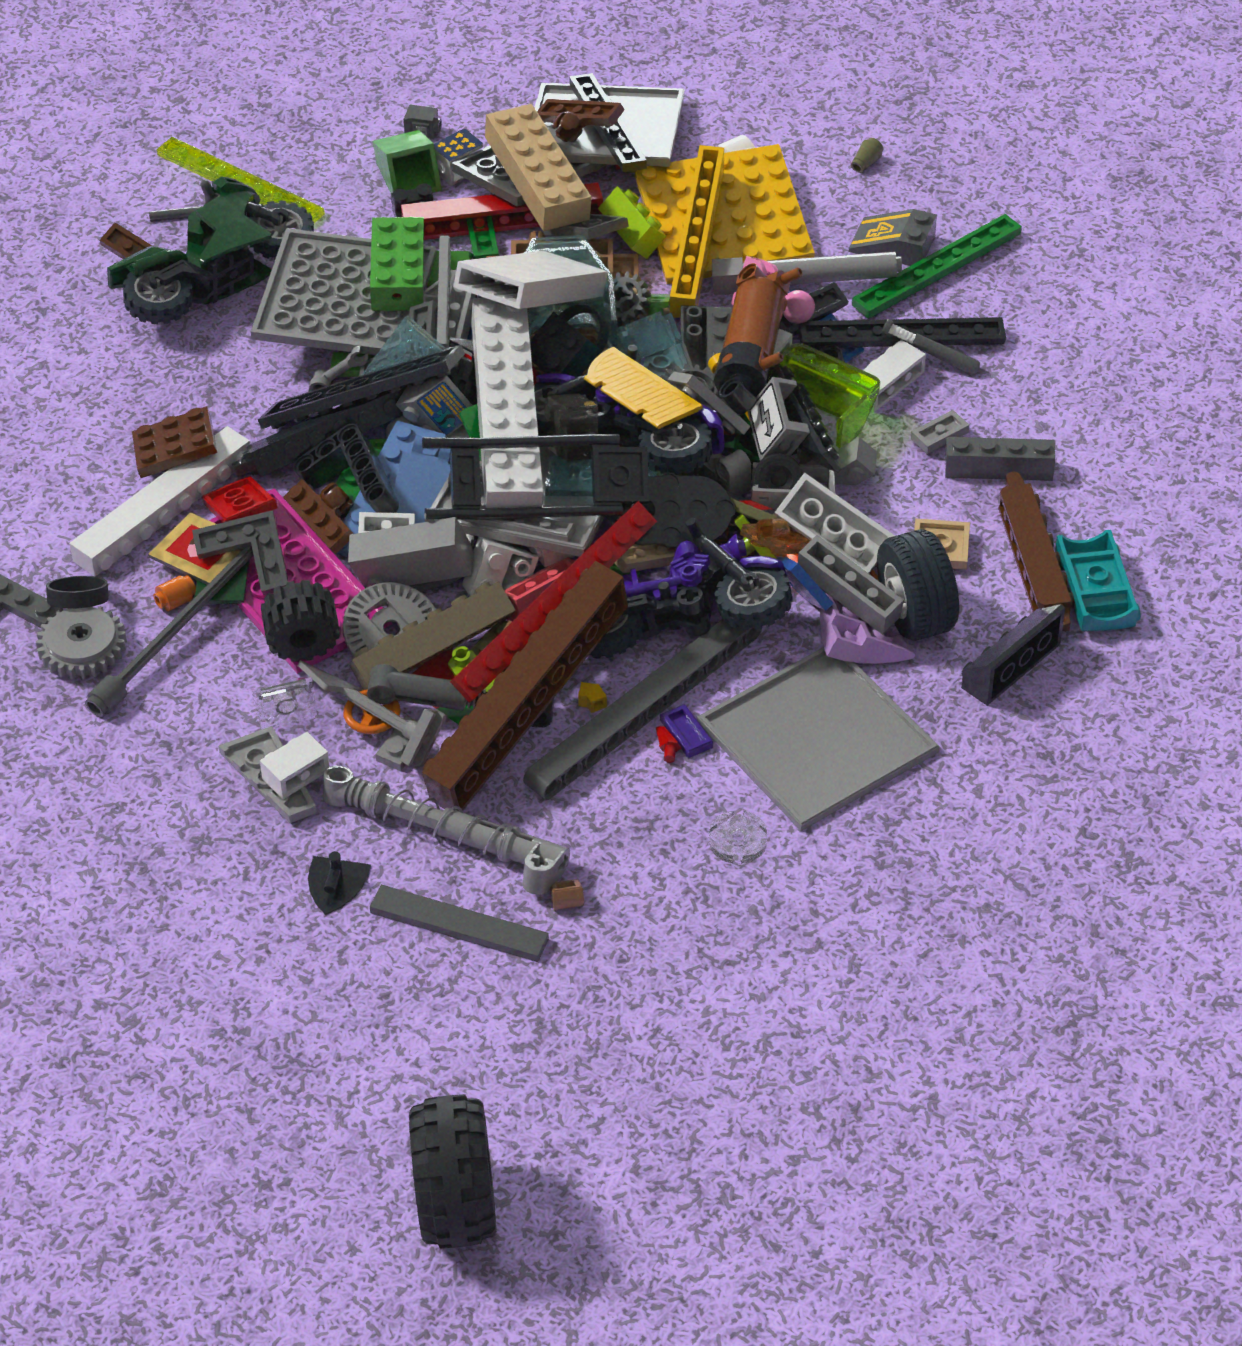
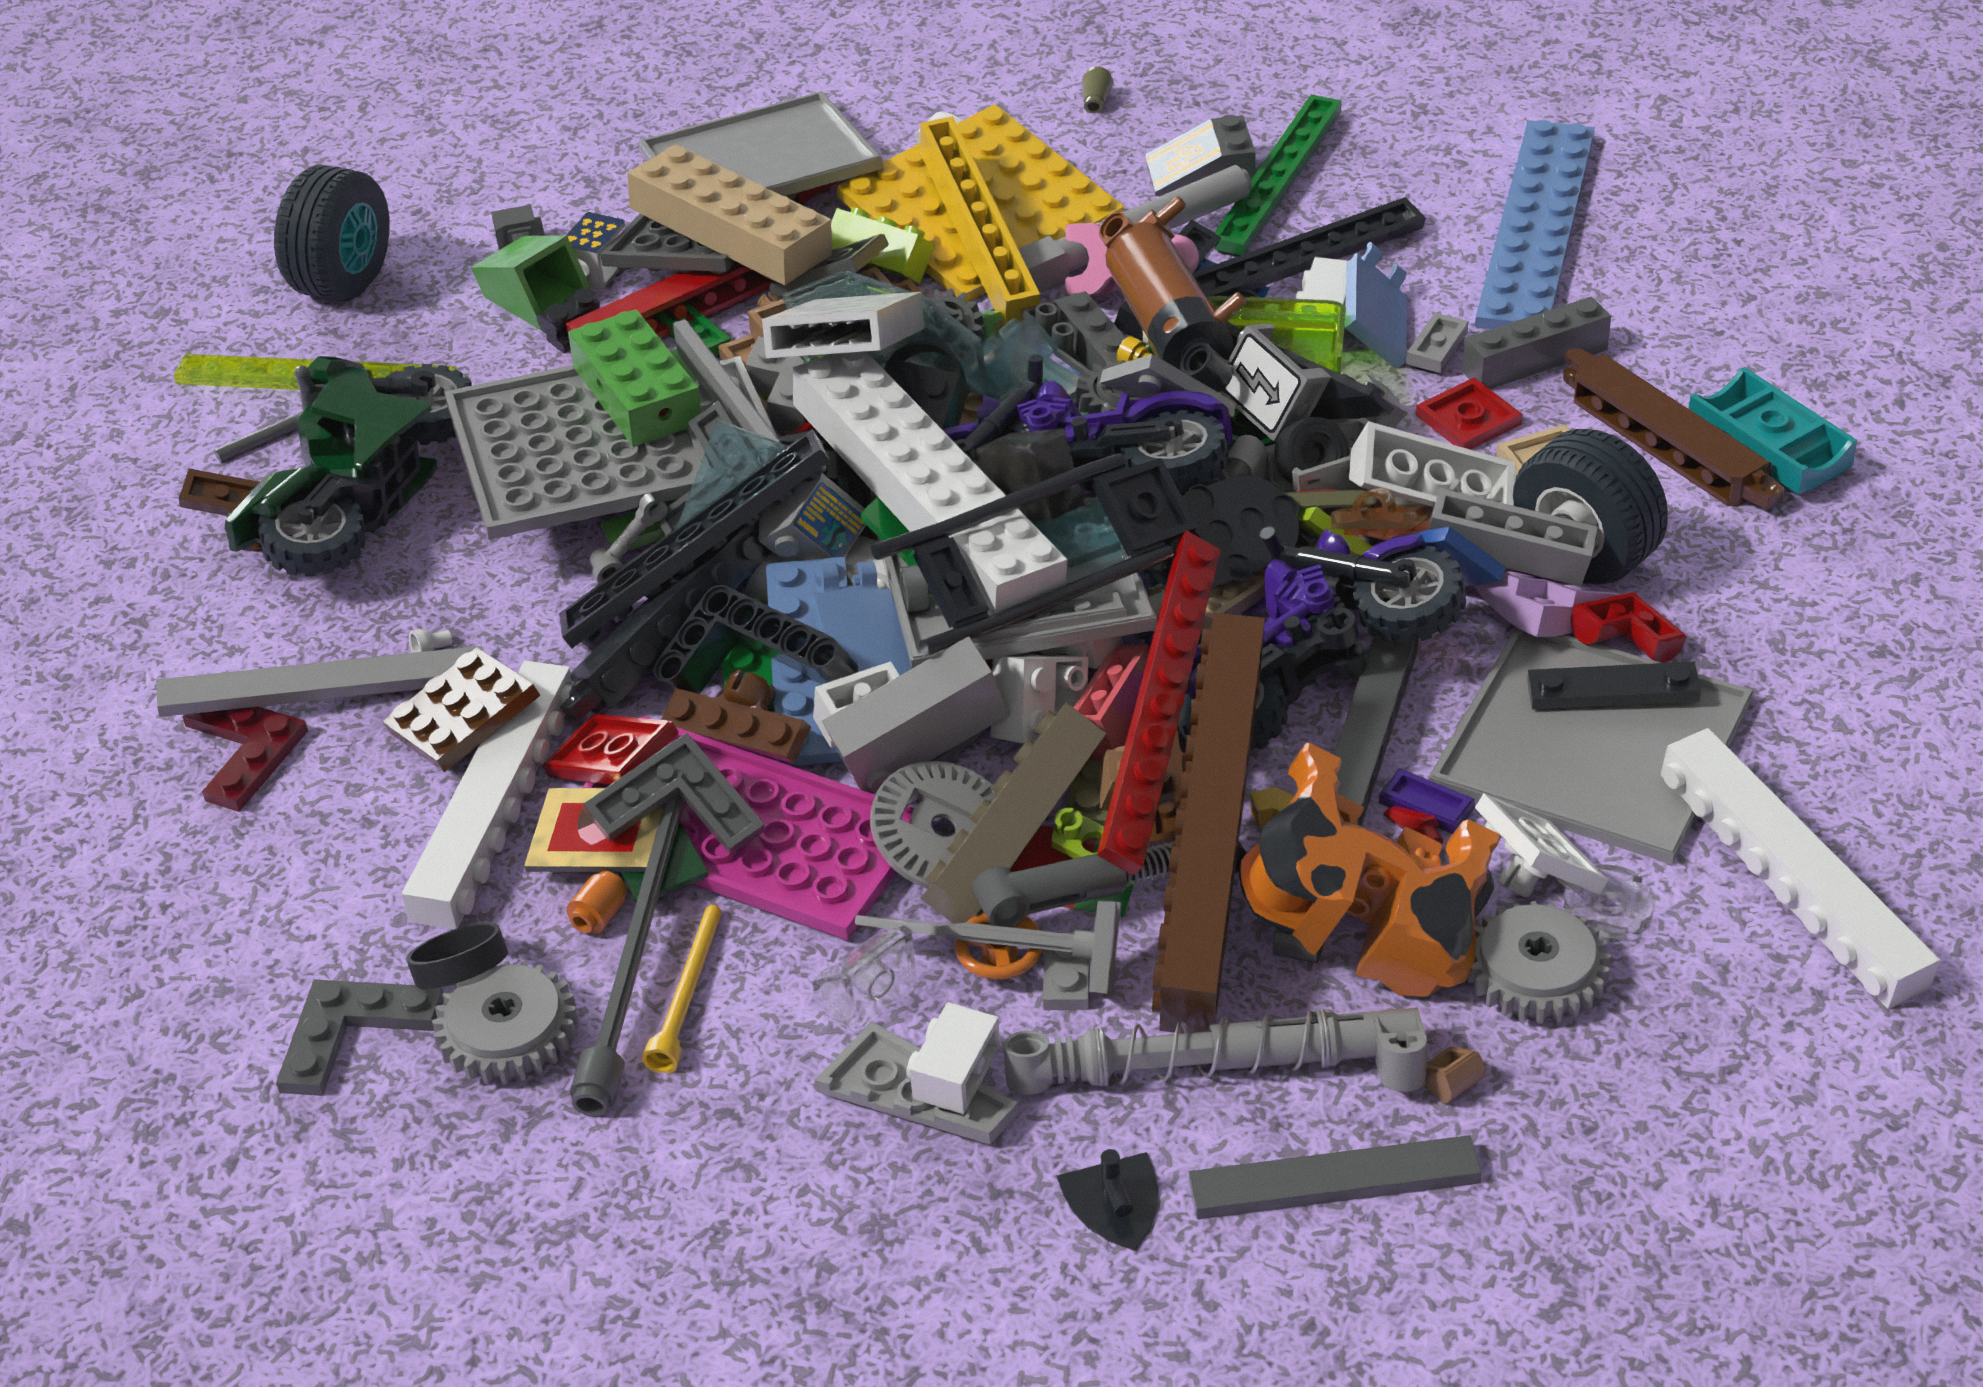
camera: 25 degrees left, 5 degrees down
(64, 415) = (265, 742): none -> dark red plate
(103, 389) = (302, 682): none -> light grey tile
(154, 694) = (664, 1049): none -> yellow piece
(187, 391) = (421, 640): none -> white piece
(296, 85) = (331, 232): none -> black wheel
(300, 621) = (830, 859): black wheel -> none
(576, 114) = (736, 143): reddish brown plate -> none
(614, 790) = (1322, 864): none -> orange animal
(616, 137) = (773, 145): black plate -> none
(639, 389) = (1086, 399): yellow piece -> none
(665, 852) = (1539, 962): none -> light grey gear
(714, 785) = (1537, 850): none -> white plate
(852, 706) = (1613, 685): none -> black plate
(861, 863) = (1799, 869): none -> white brick
(898, 666) = (1629, 618): none -> red brick
(914, 391) = (1376, 306): none -> medium blue tile
(920, 490) = (1469, 414): none -> red tile
(934, 348) = (1408, 260): dark grey piece -> none
(1014, 654) = (1748, 546): black slope -> none
(1082, 369) = (1536, 223): none -> medium blue plate

